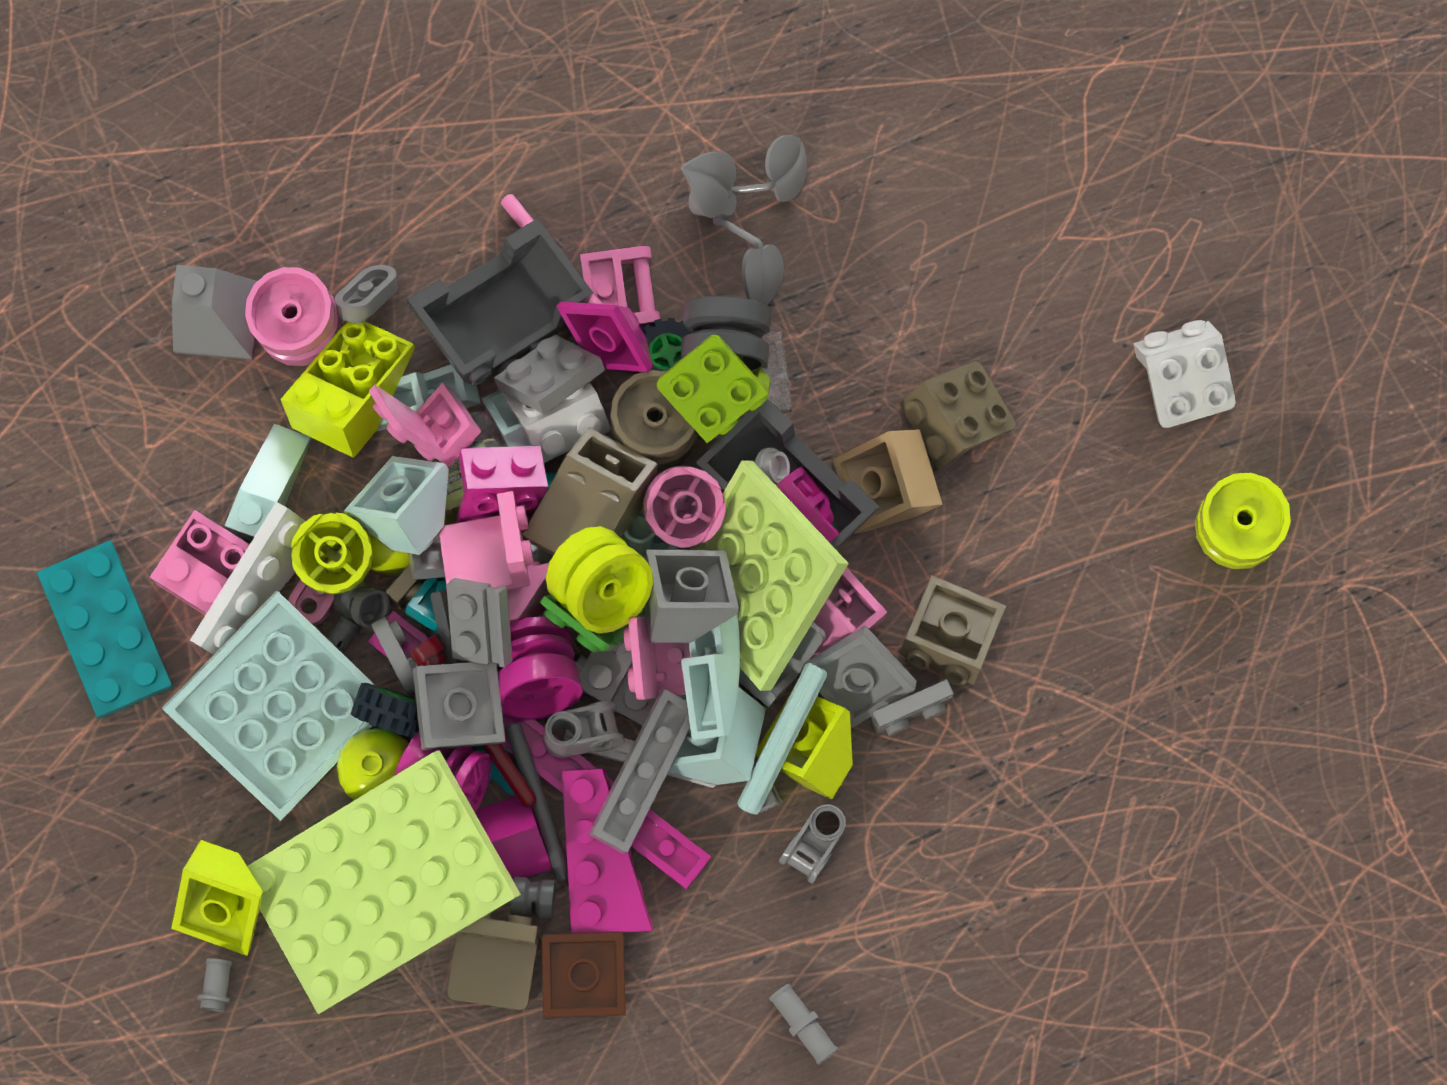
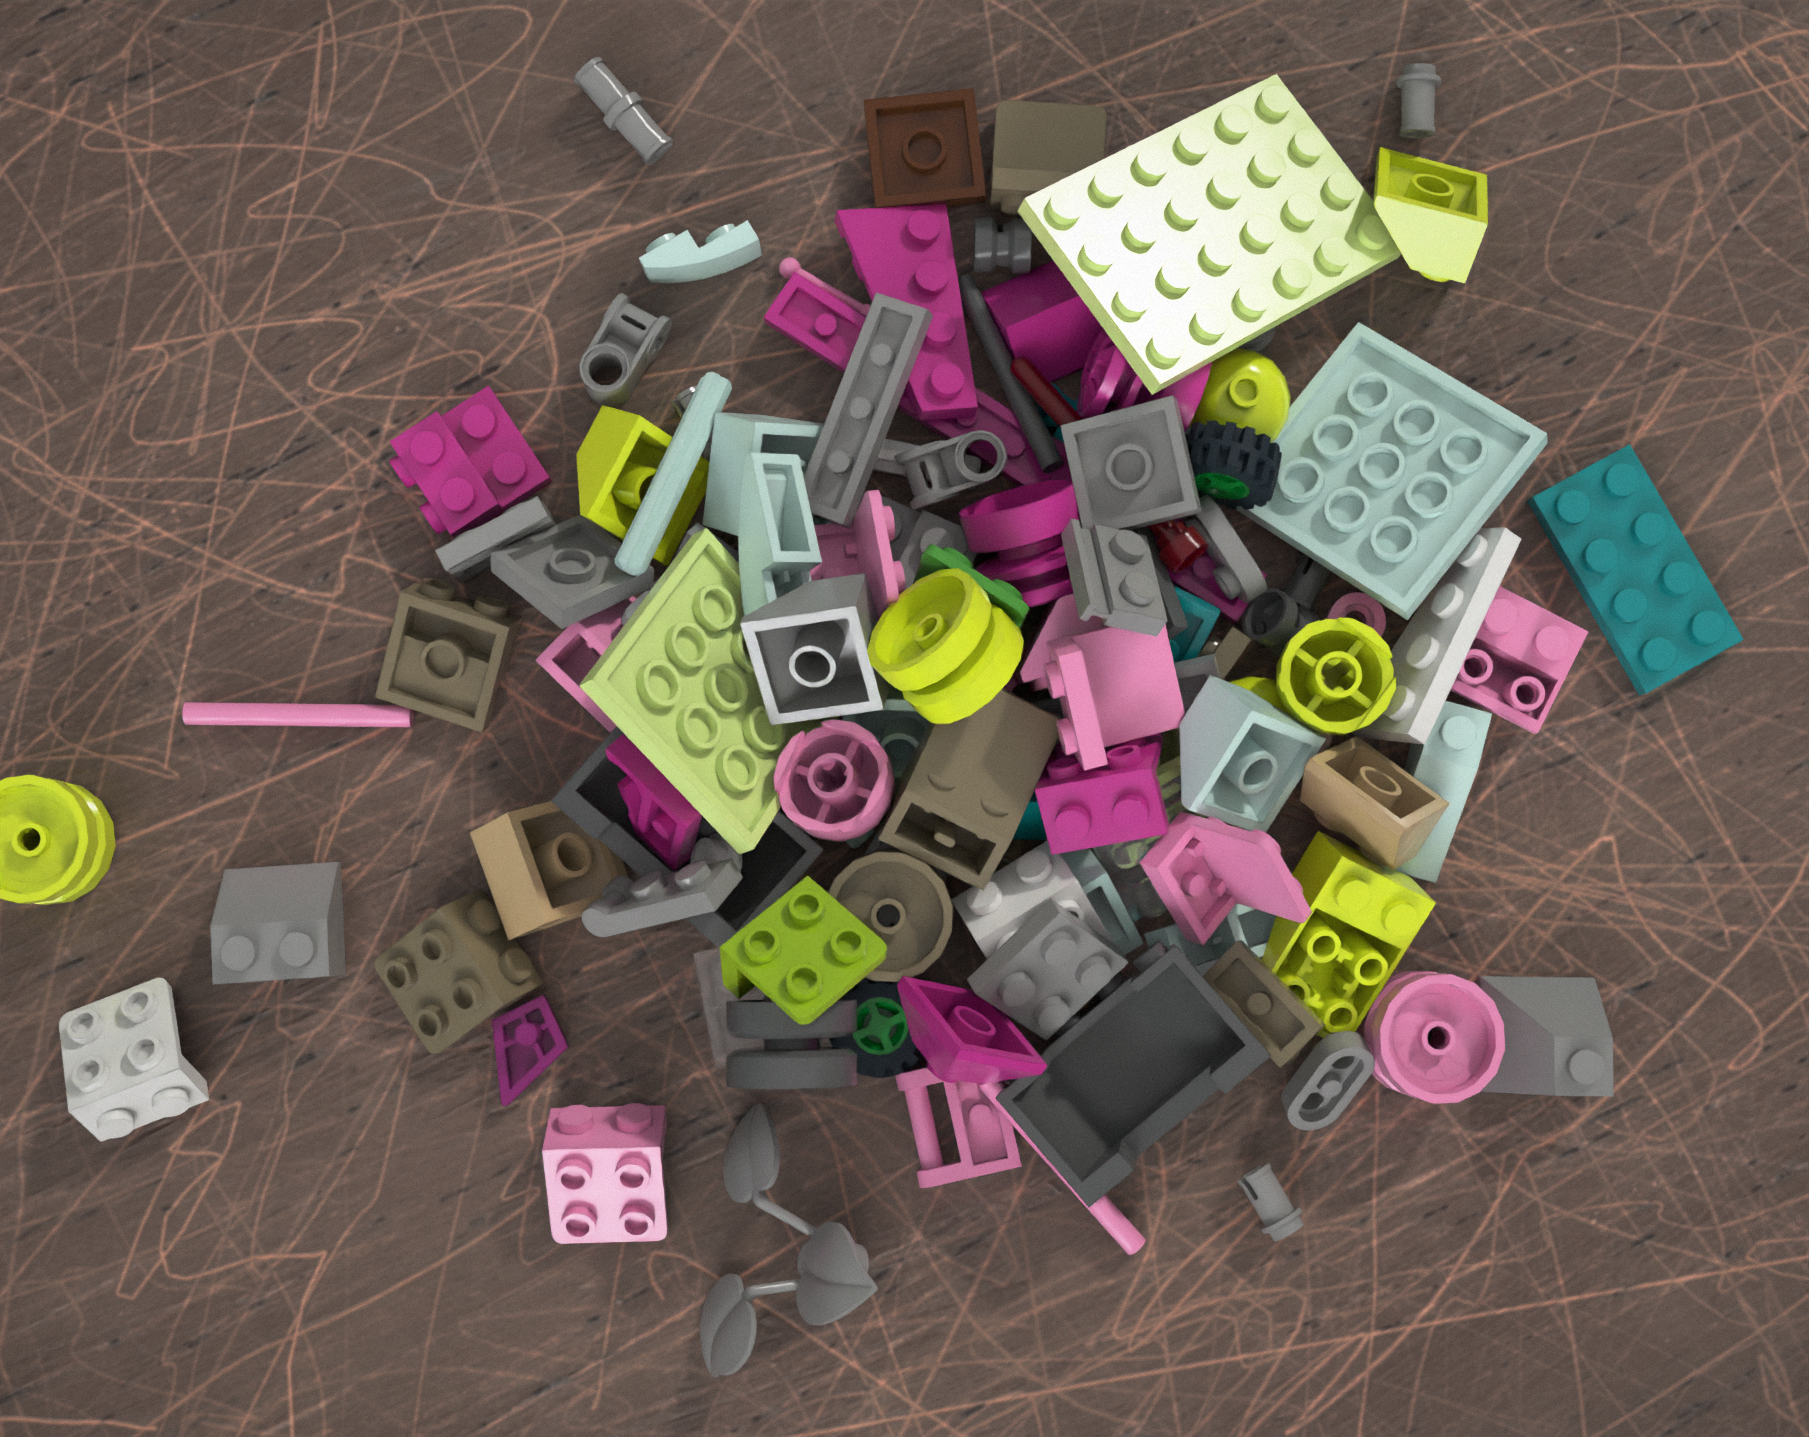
camera: 175 degrees right, 5 degrees up
(313, 472) = (1371, 801): none -> tan slope
(407, 340) = (1264, 1003): none -> dark tan panel
(413, 220) = (1271, 1202): none -> light grey pin
(689, 897) = (790, 265): none -> bright pink hinge
(766, 906) = (680, 260): none -> light aqua slope
(809, 440) = (660, 897): none -> light grey plate
(861, 273) = (606, 1173): none -> bright pink bracket
(912, 361) = (526, 1045): none -> magenta piece
(932, 768) = (468, 464): none -> dark pink plate
(1064, 601) = (297, 714): none -> bright pink bar
(1078, 454) = (278, 924): none -> light grey slope

